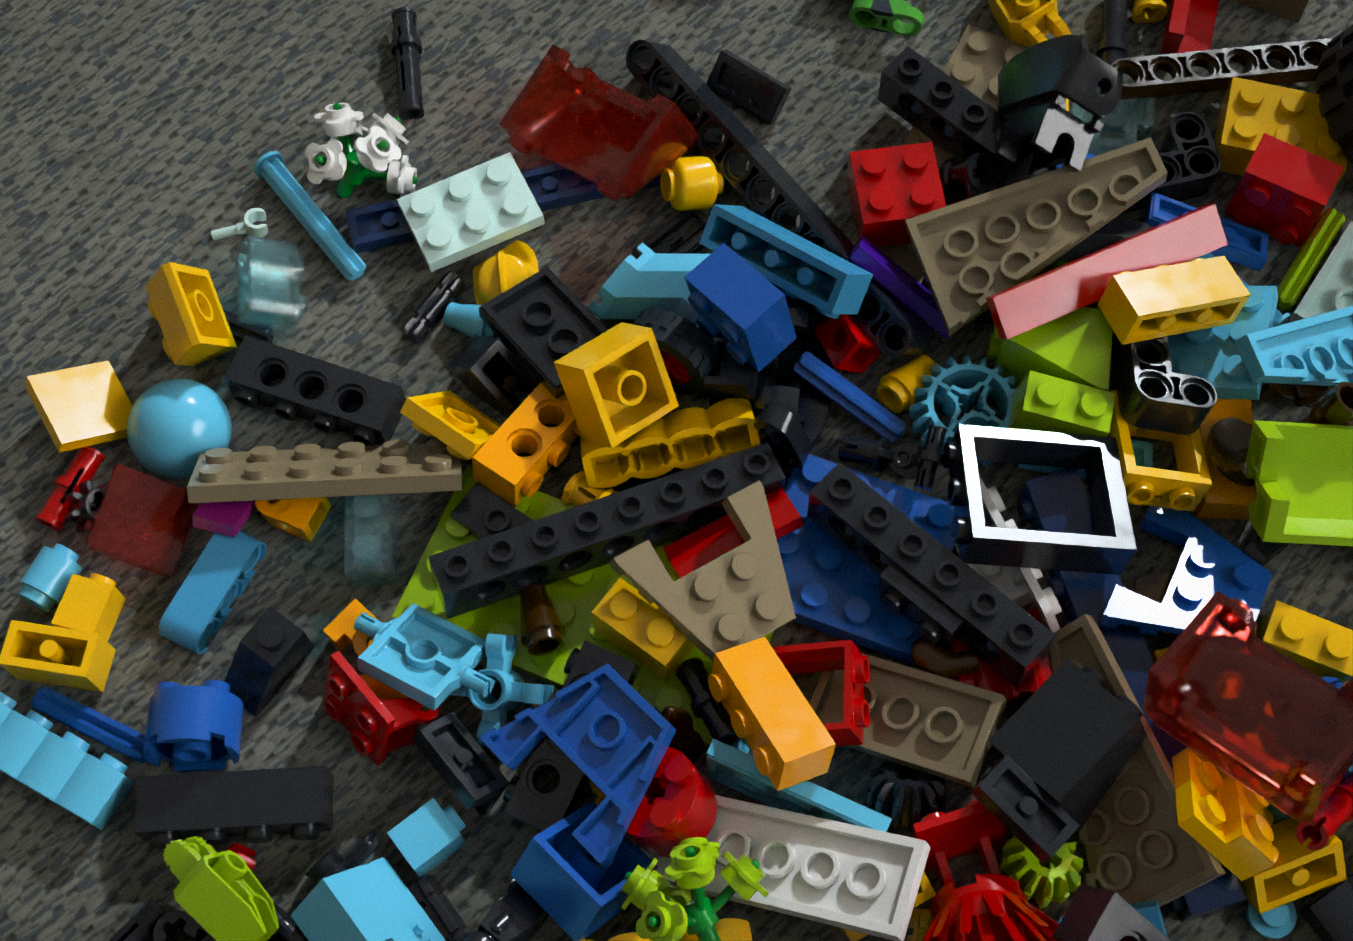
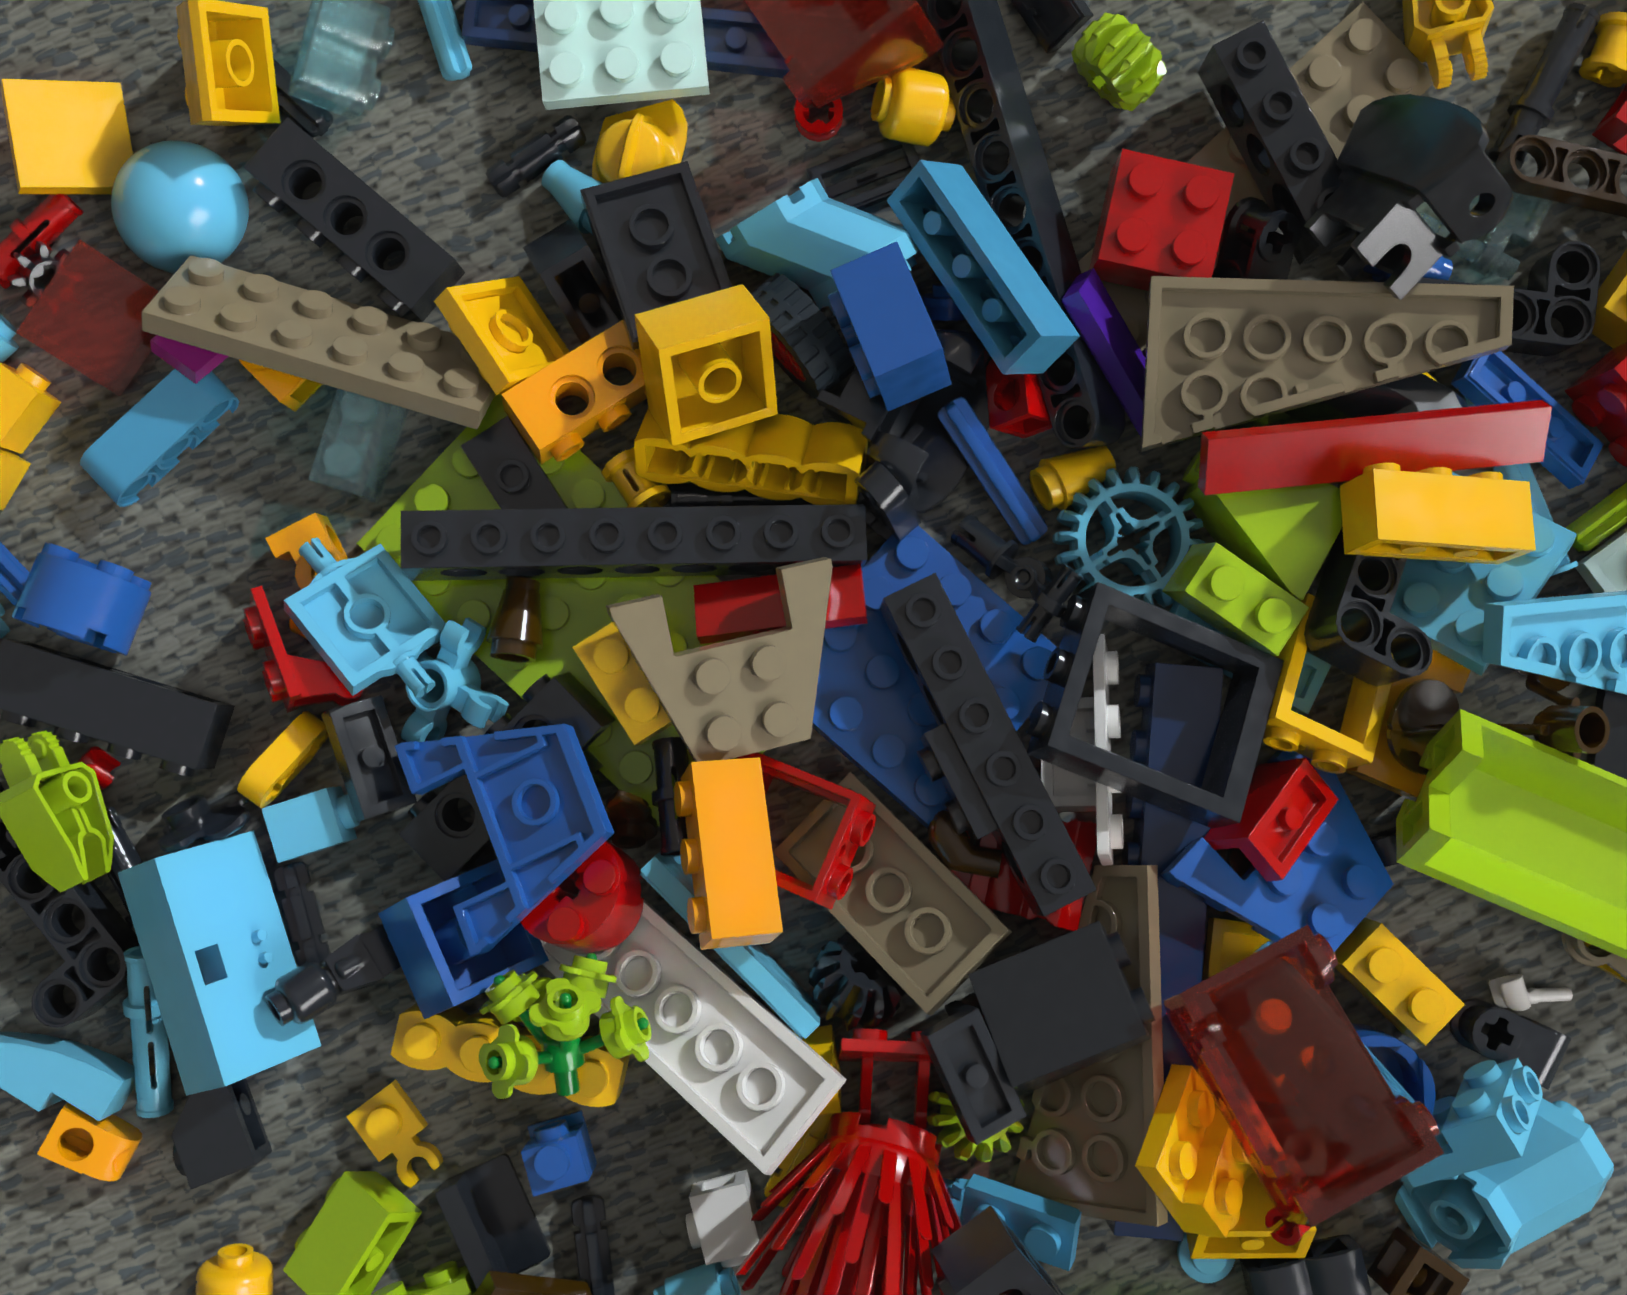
camera: 20 degrees right, 20 degrees up
(266, 660) = (195, 544): black slope -> none
(390, 793) = (283, 760): none -> yellow beam
(630, 223) = (818, 130): none -> red bush
(821, 109) = (1118, 61): none -> lime gear
(1164, 550) = (1279, 816): none -> red panel

